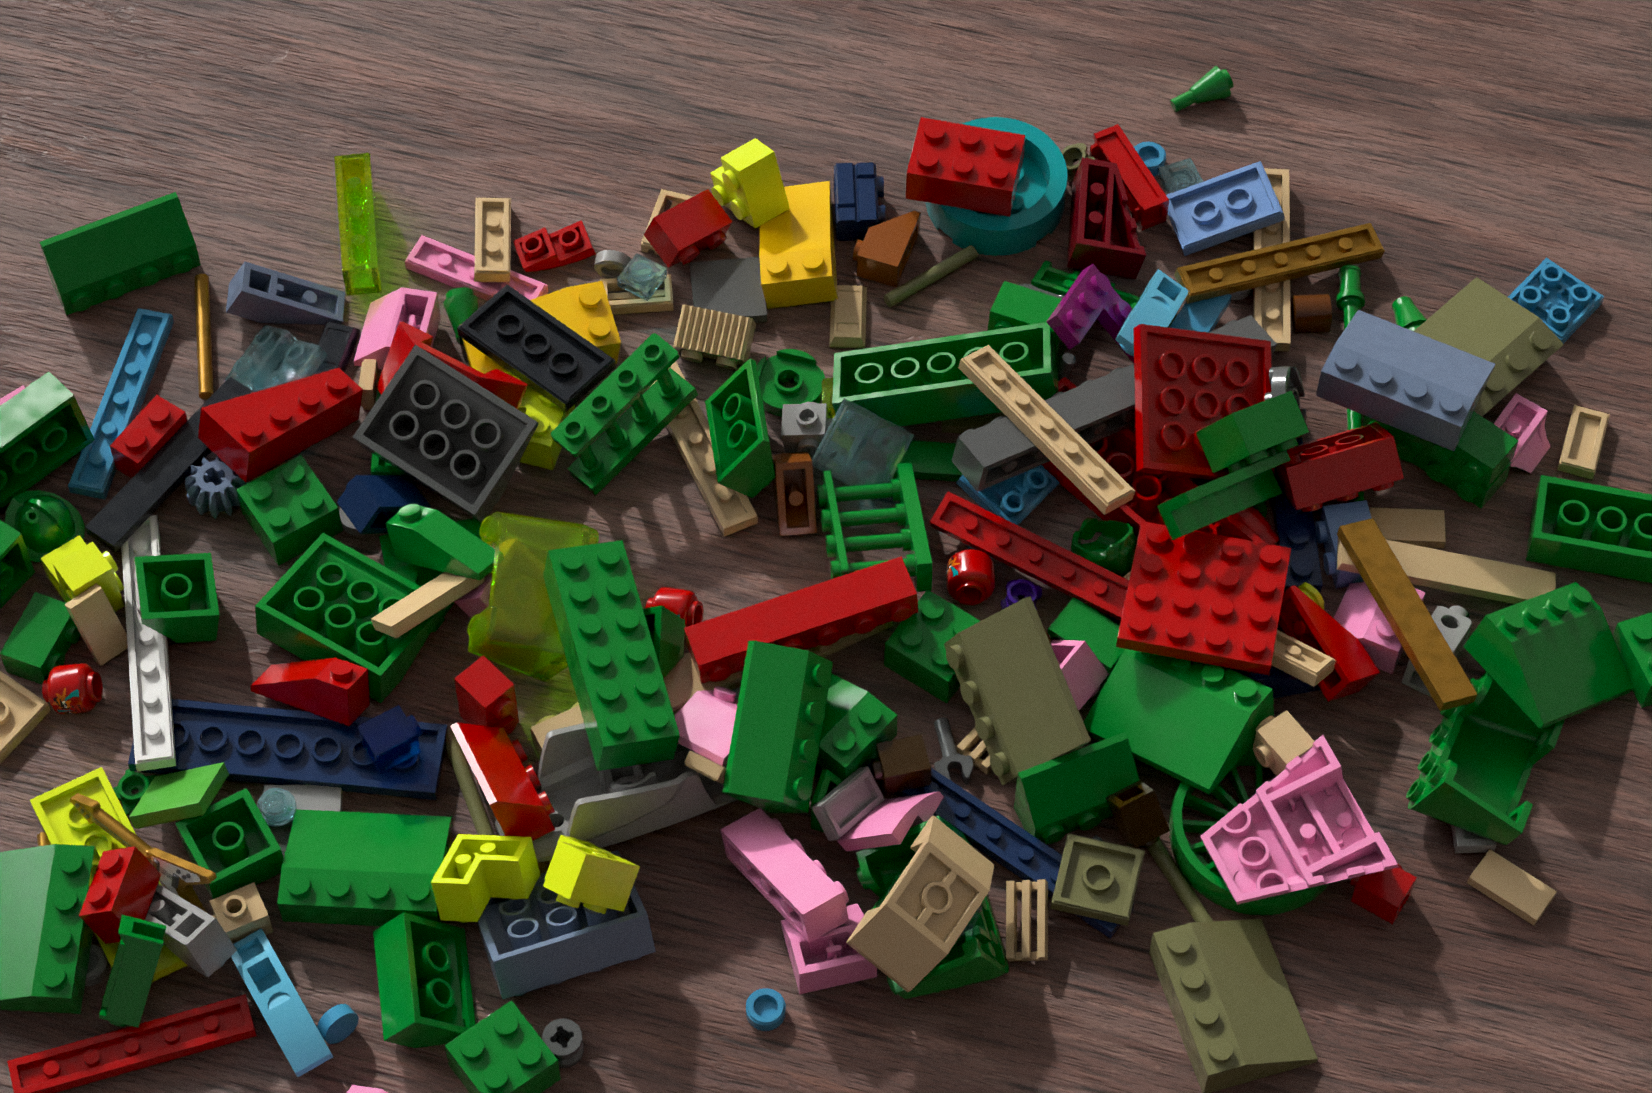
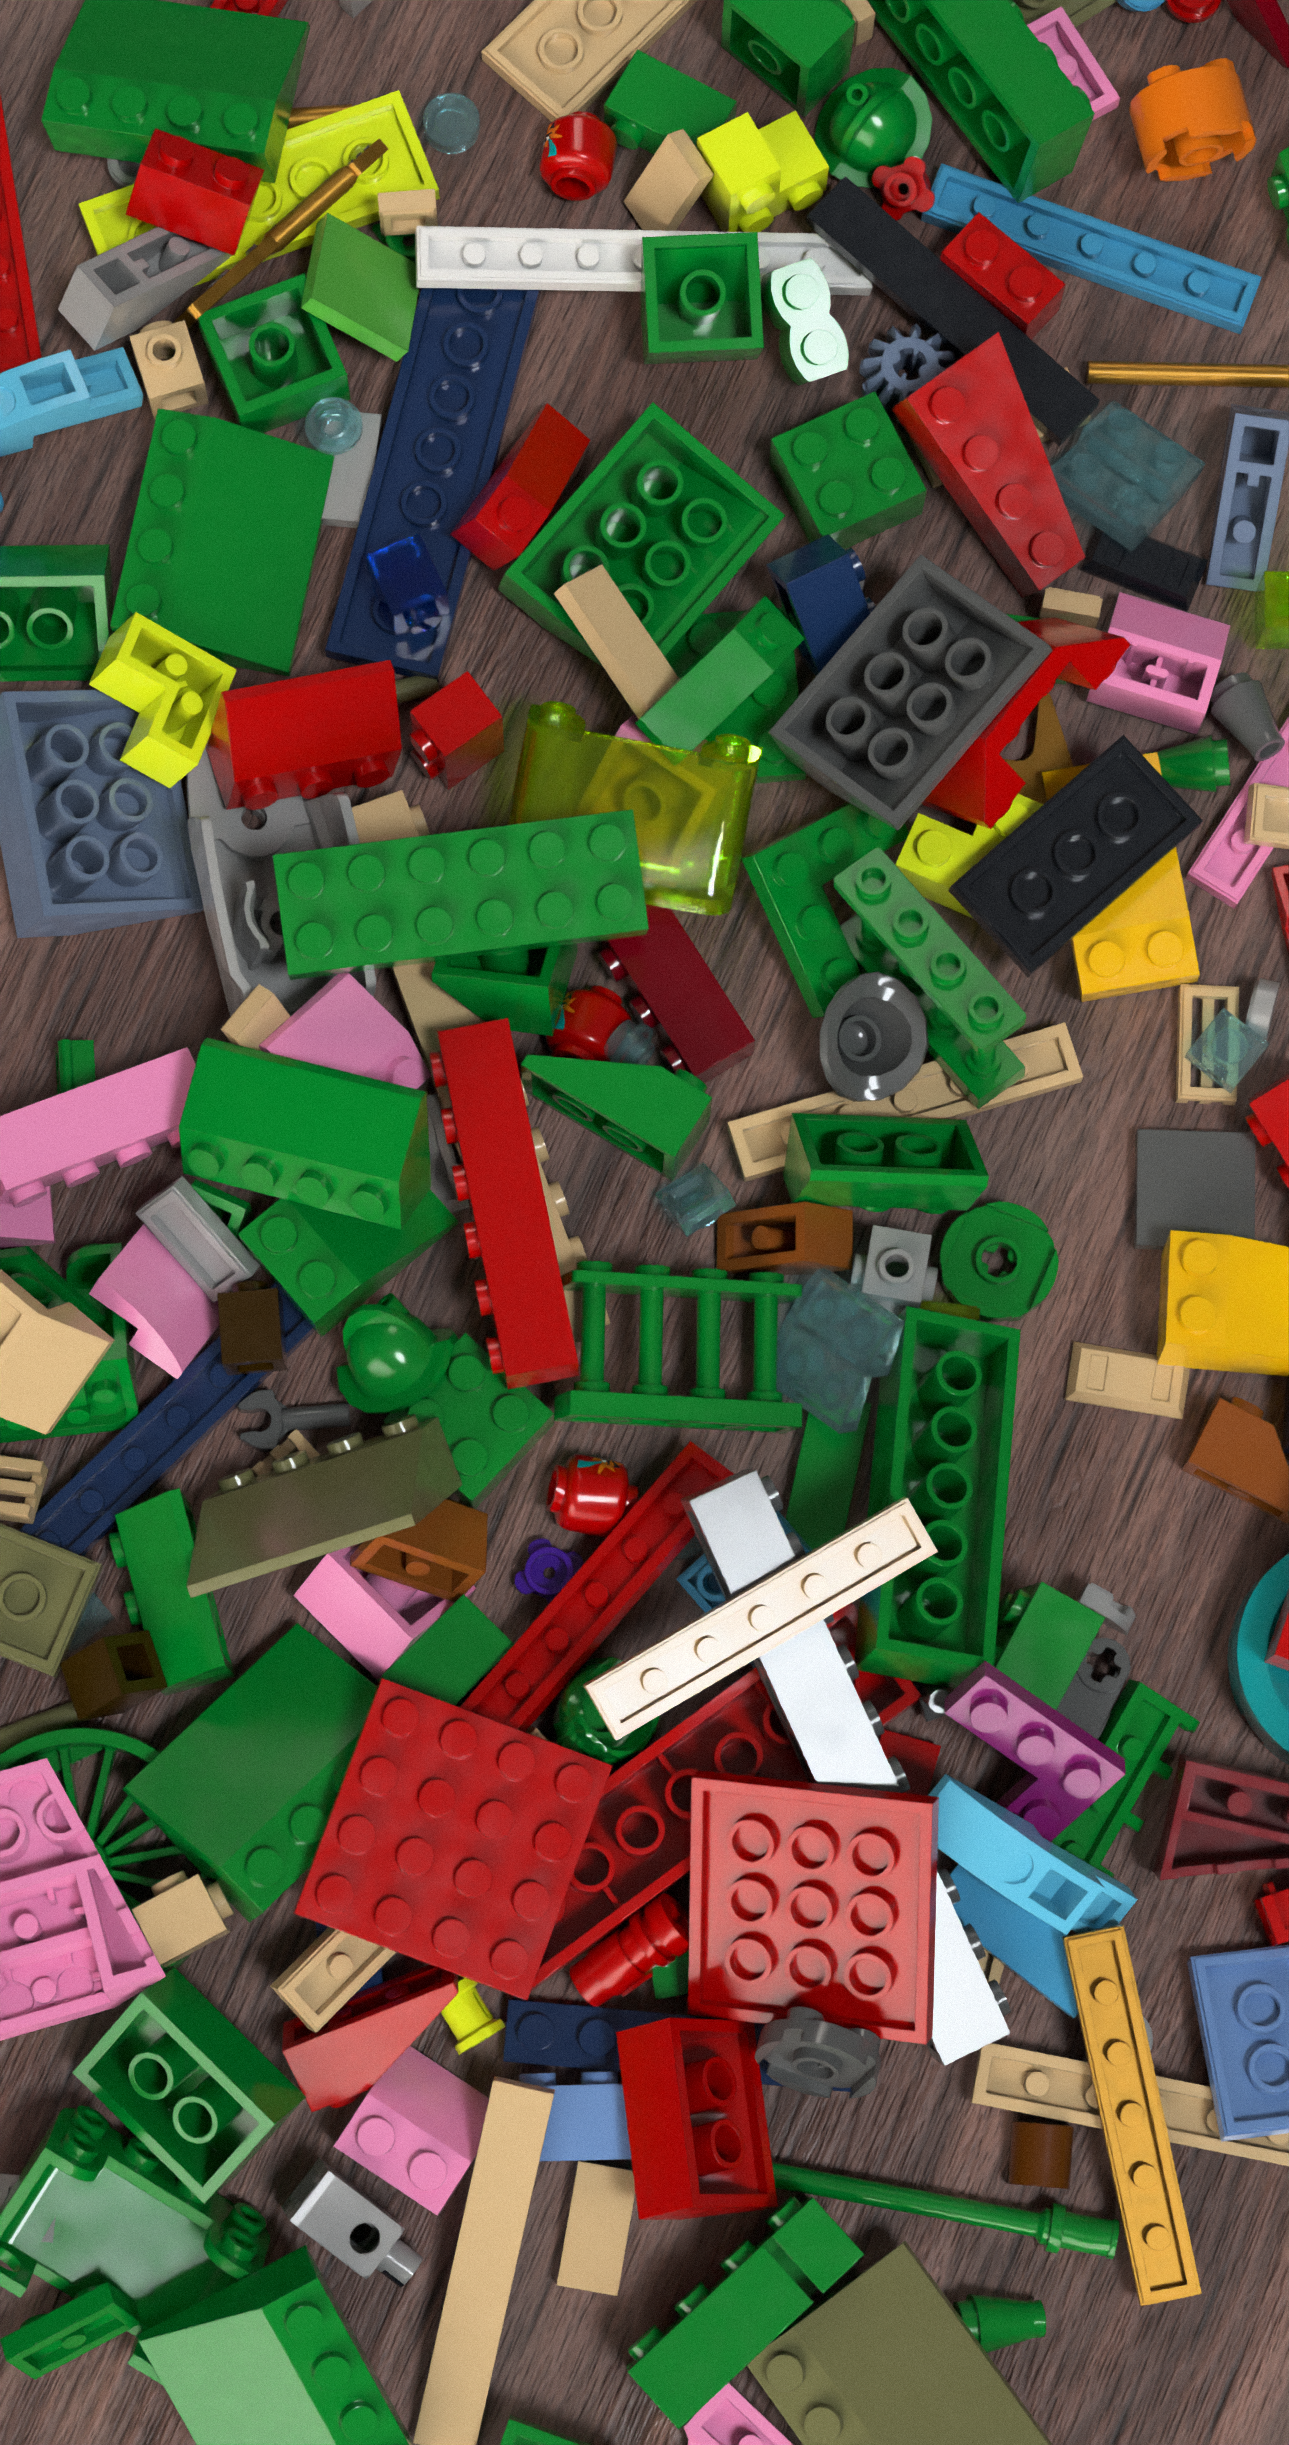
camera: 95 degrees right, 20 degrees up
(38, 341) = (1191, 119): none -> orange brick
(48, 772) = (451, 123): none -> clear light blue tile
(78, 495) = (911, 173): none -> red plate
(122, 776) = (405, 210): none -> tan tile
(132, 971) = (75, 204): green window -> none
(198, 532) = (800, 307): none -> brick
(433, 280) = (1246, 714): none -> dark grey cone
(579, 500) = (790, 888): none -> green plate
(589, 876) = (109, 830): neon yellow brick -> none
(661, 452) = (872, 1038): none -> dark grey helmet
(662, 555) = (678, 997): none -> dark red brick
(685, 579) = (630, 1044): none -> clear light blue plate
(714, 336) = (1094, 1151): tan brick -> none
(731, 562) = (628, 1105): none -> green slope
(742, 907) = (74, 1064): none -> green piece
(774, 542) = (695, 1200): none -> clear light blue plate
(909, 683) = (391, 1357): none -> green helmet
(930, 276) = (1191, 1526): olive bar -> none
(983, 312) = (1101, 1601): none -> light grey tile
(1222, 497) = (631, 1902): green fence -> none
(1253, 433) = (729, 1969): green brick -> none
(1384, 735) = (188, 2084): none -> green brick
(1404, 379) = (819, 2260): sand blue slope -> none
(1407, 614) = (369, 2159): pearl gold tile -> none
(1549, 803) = (70, 2330): none -> green plate

